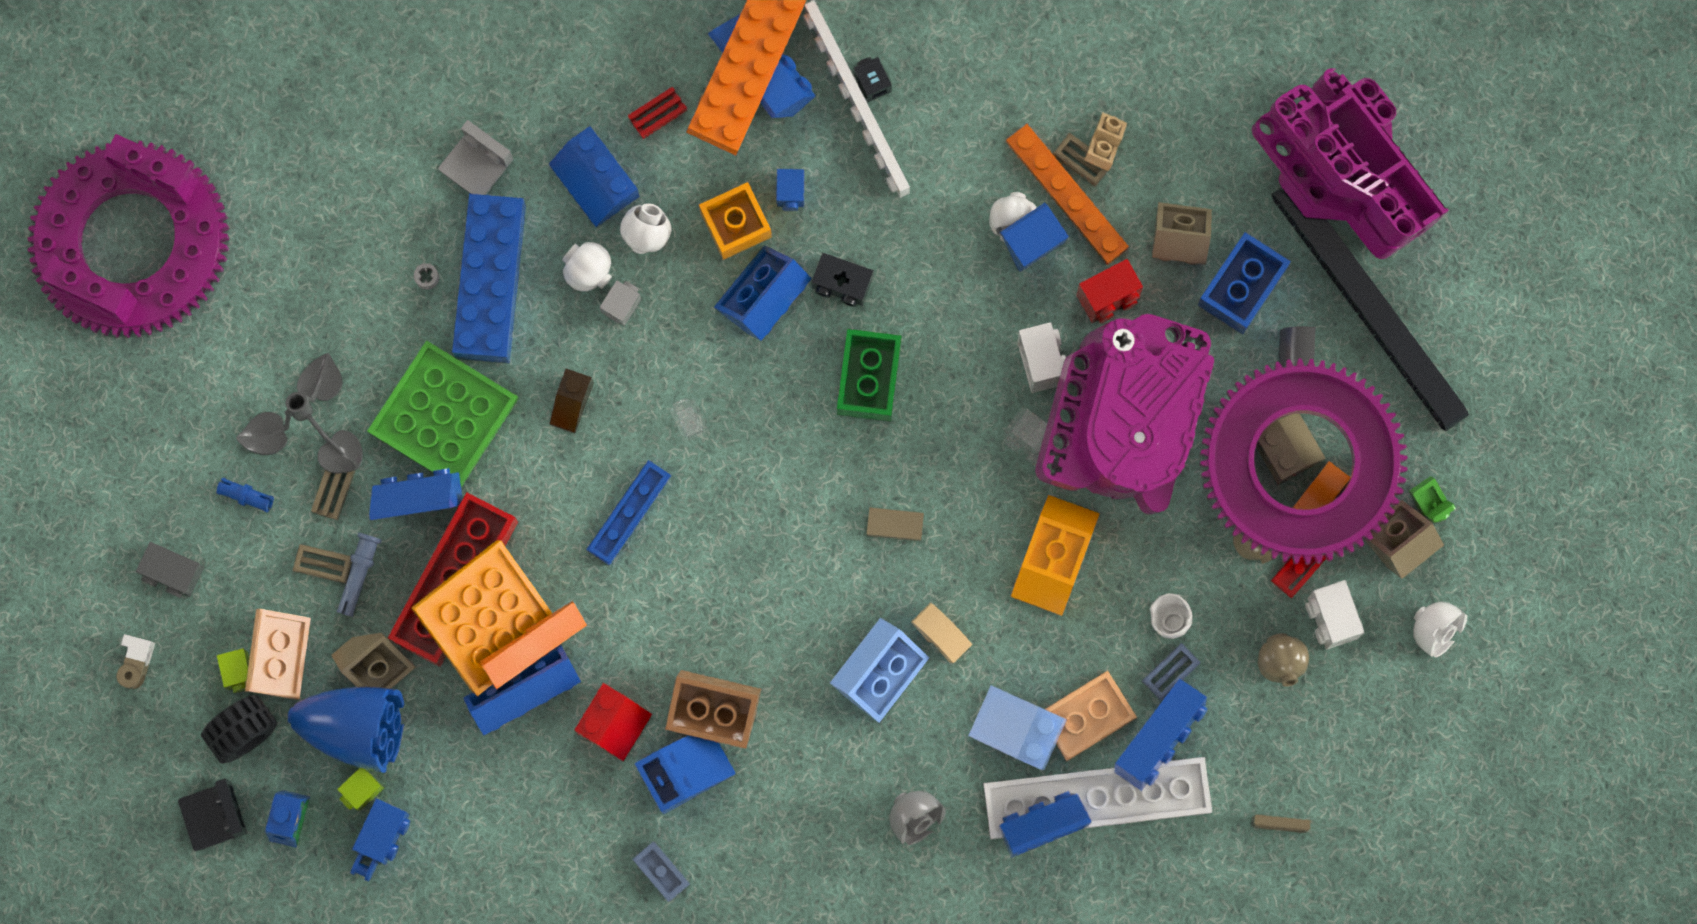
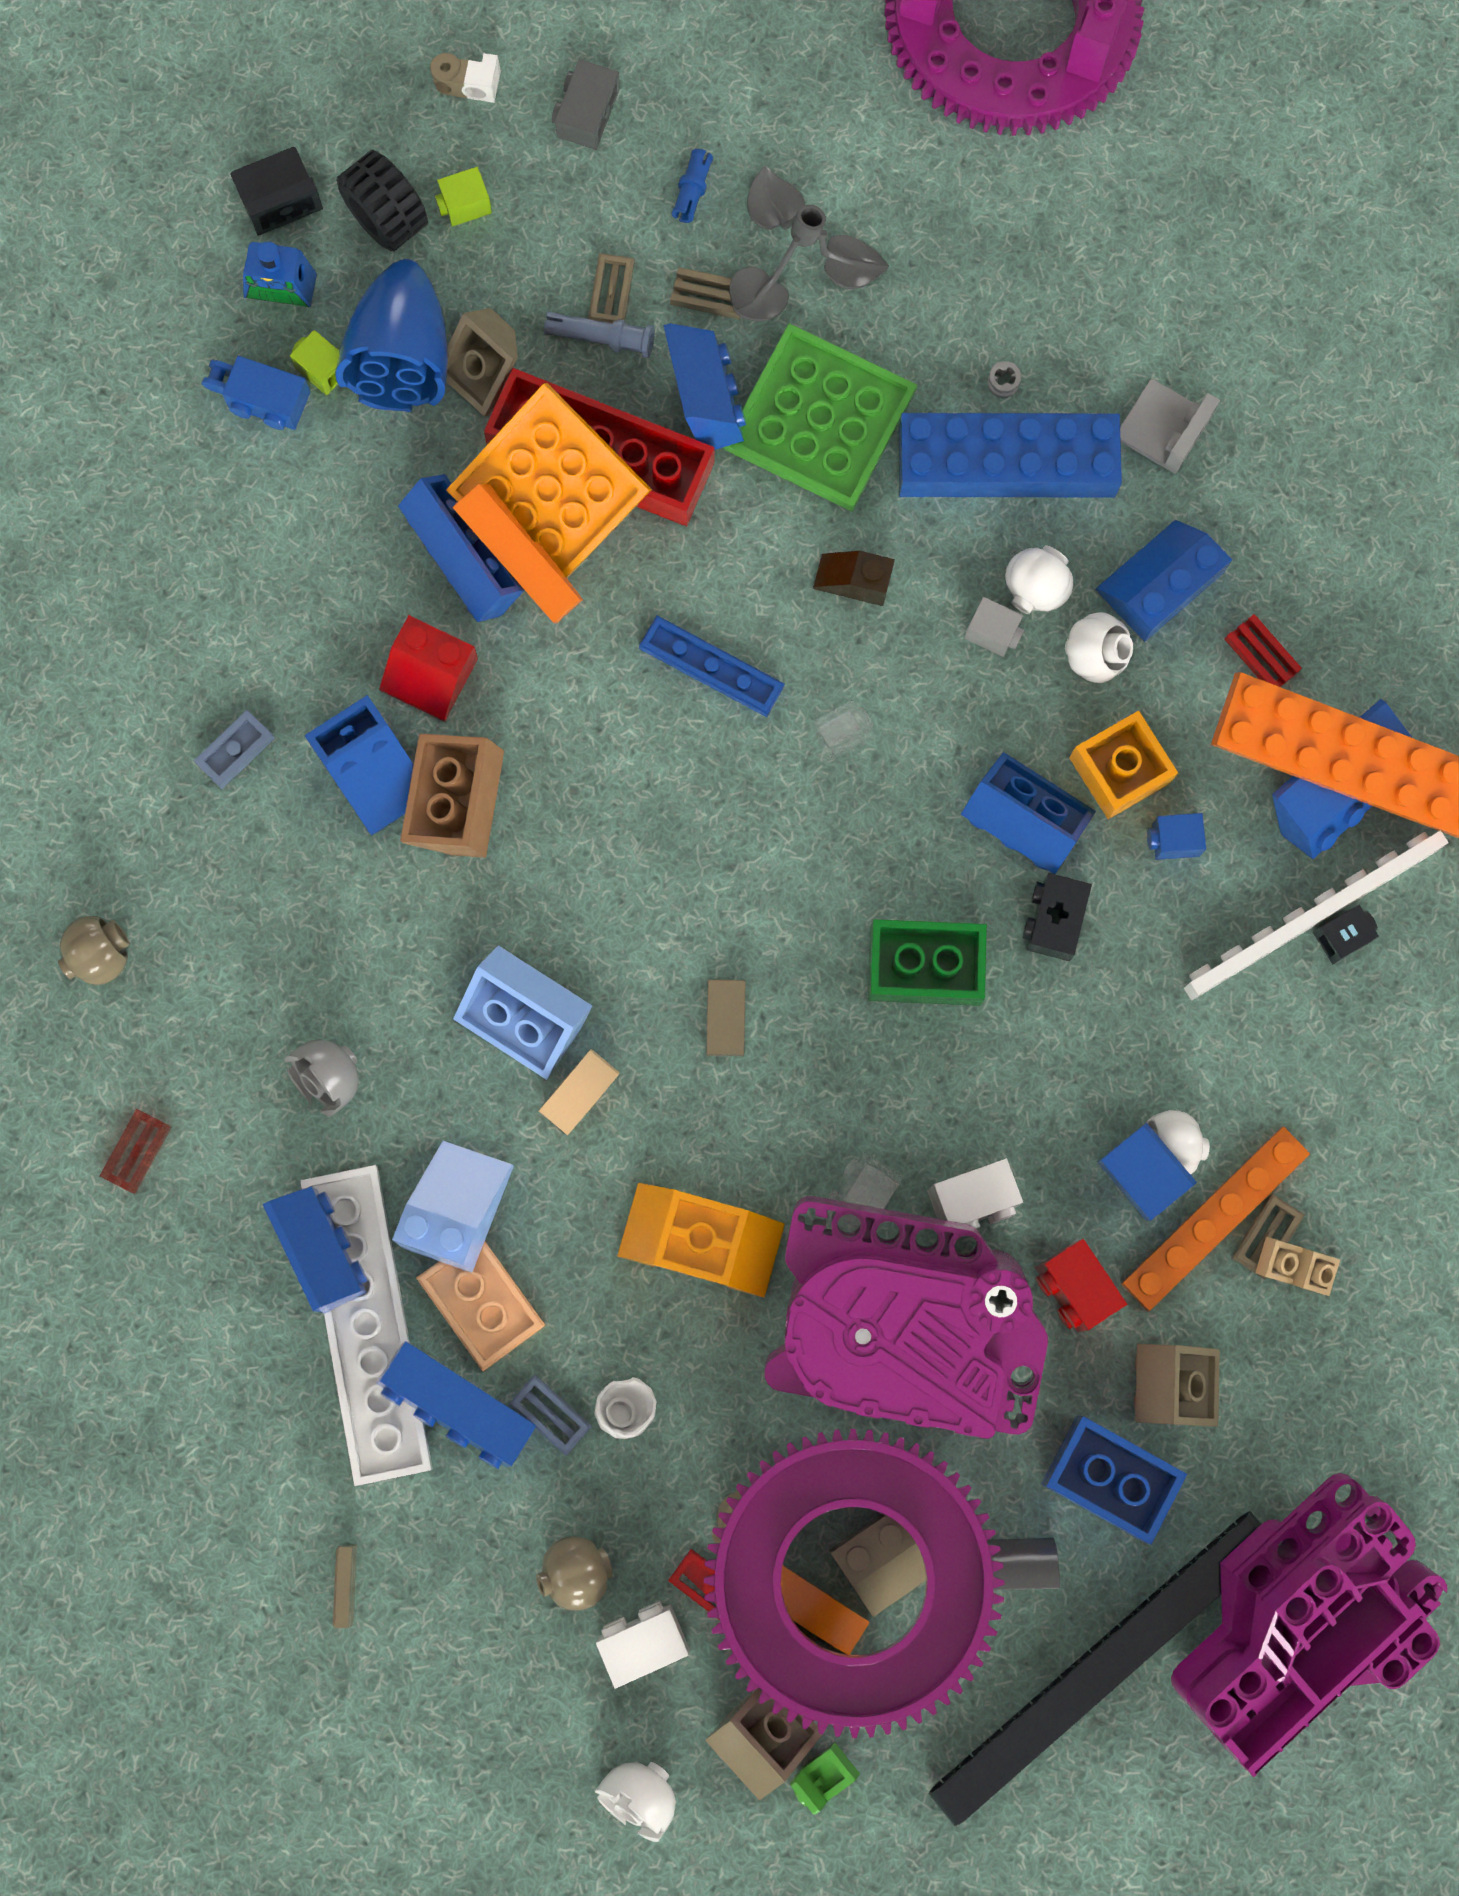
camera: 80 degrees right, 0 degrees up
(277, 654) = (486, 243): light nougat tile -> none

